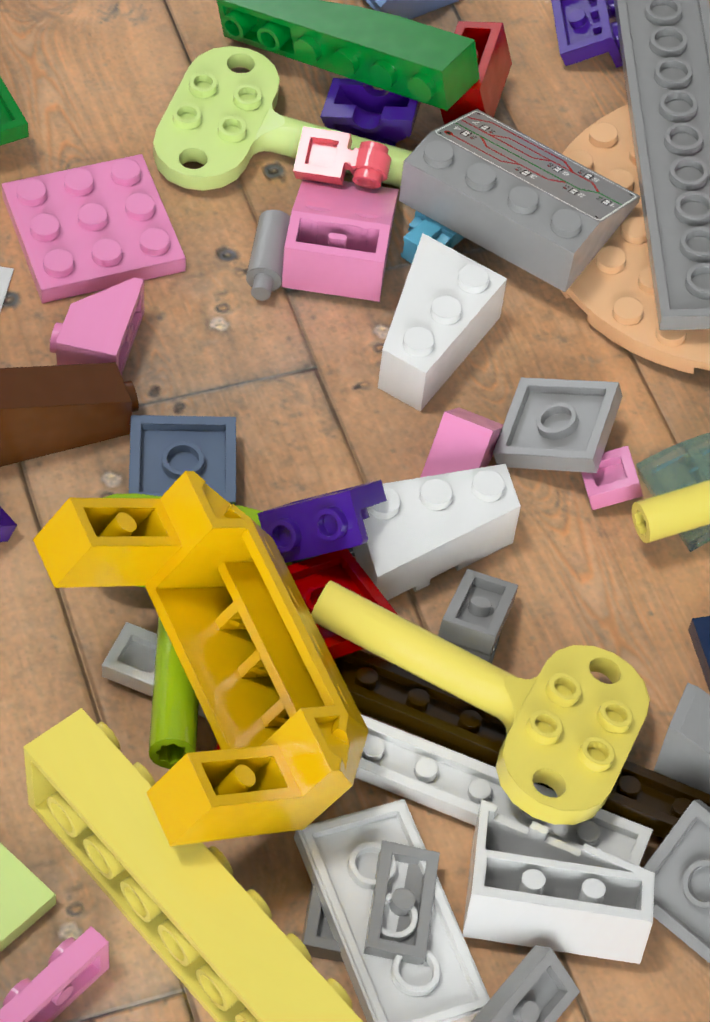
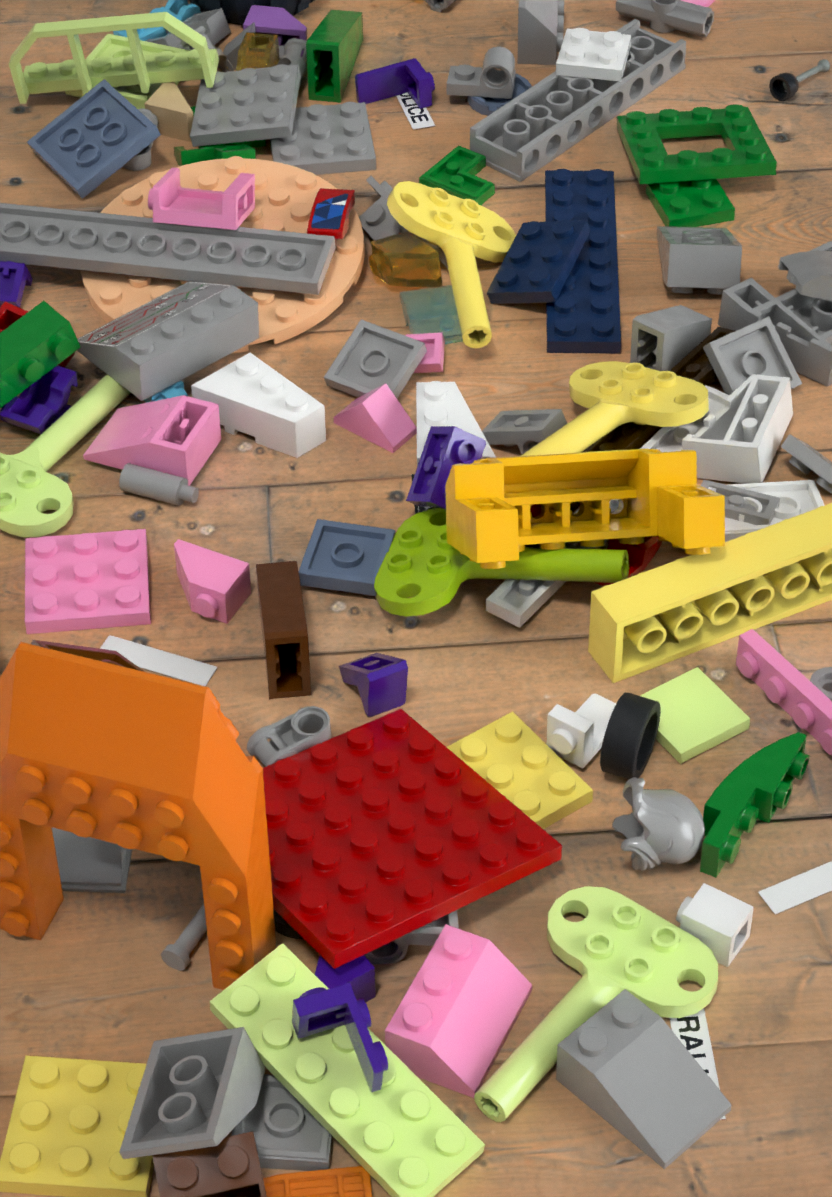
camera: 70 degrees left, 10 degrees down
(328, 154) = (90, 423): plate -> none

